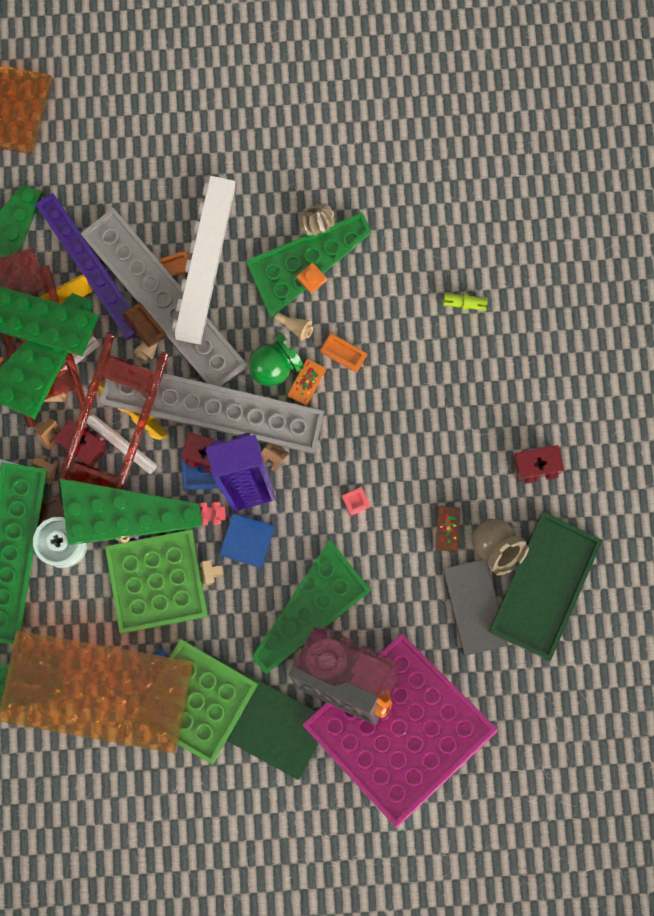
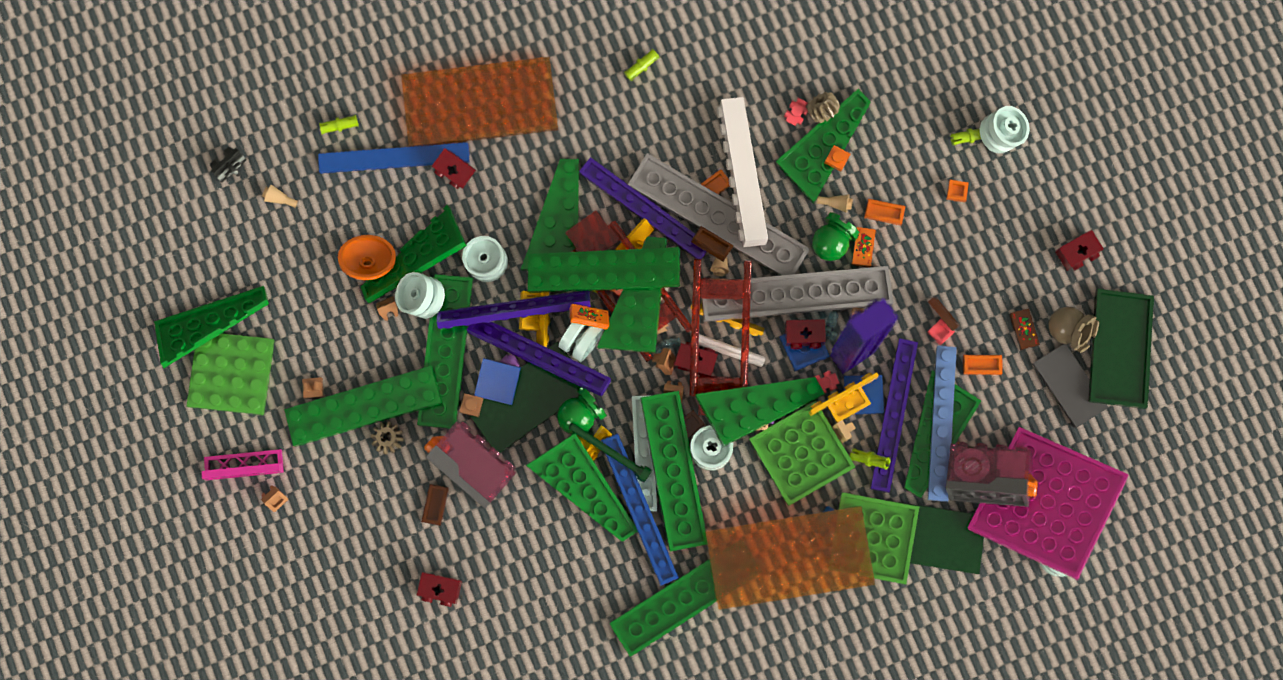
camera: 20 degrees left, 0 degrees up
(58, 415) = (667, 343): none -> clear light blue arm
(144, 115) = (641, 65): none -> lime pin
(223, 542) = (848, 401): none -> yellow bracket
(225, 612) = (870, 458): none -> lime pin
(270, 575) = (894, 413): none -> dark purple plate
(289, 215) = (798, 108): none -> coral piece
(319, 595) = (941, 422): none -> medium blue plate
(365, 482) = (944, 313): none -> reddish brown tile
(388, 552) = (982, 364): none -> orange tile
(429, 355) = (957, 191): none -> orange plate
(502, 306) = (1004, 129): none -> light aqua wheel

